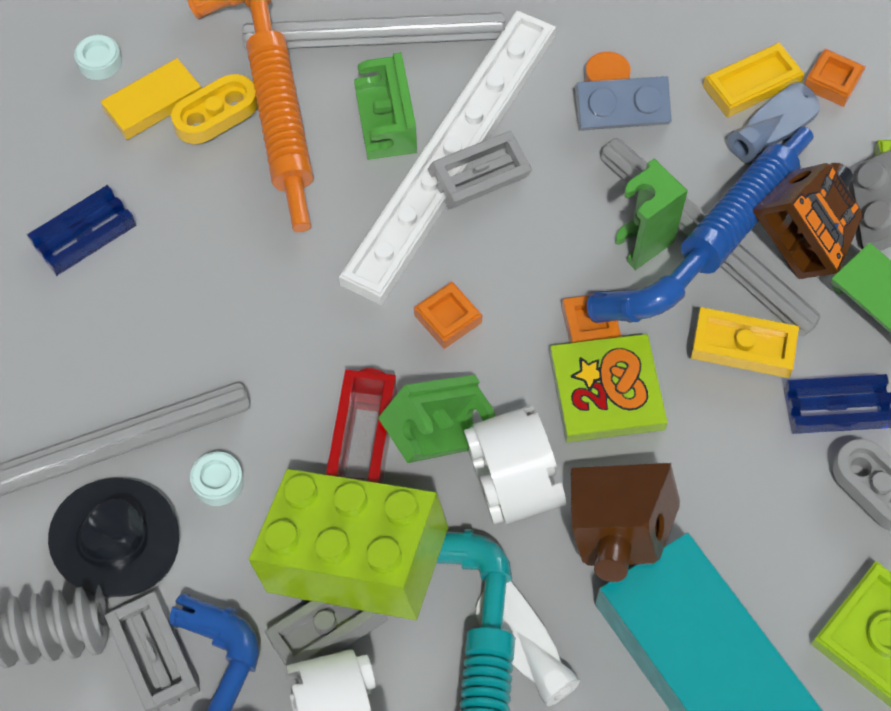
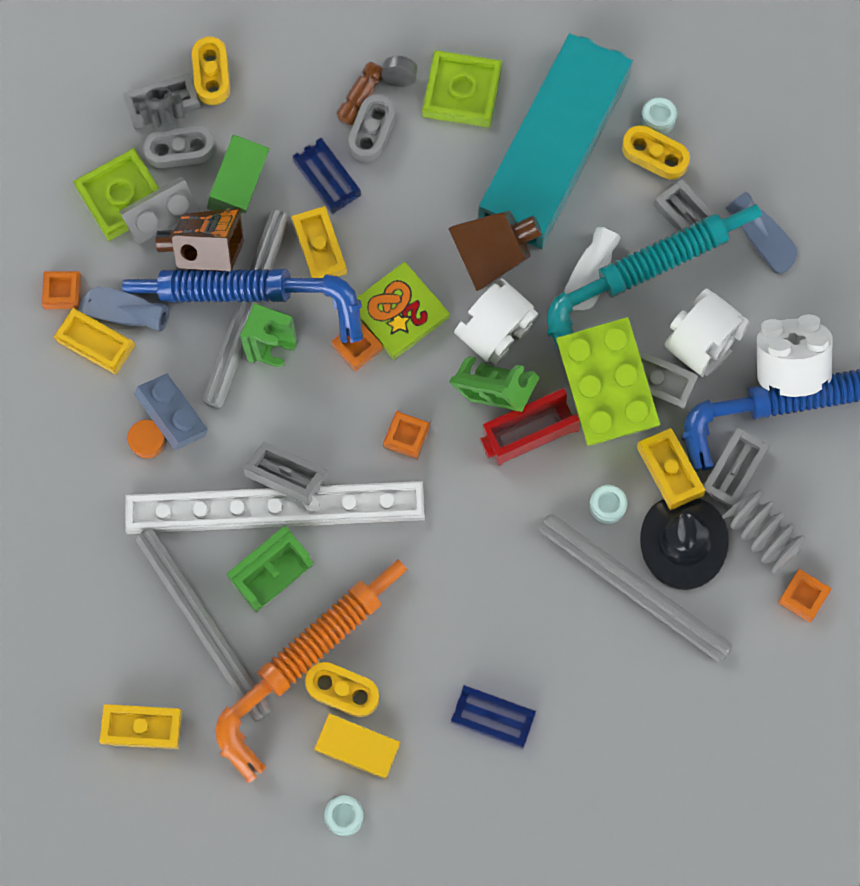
camera: 120 degrees left, 10 degrees up
(200, 567) = (670, 468): none -> yellow plate

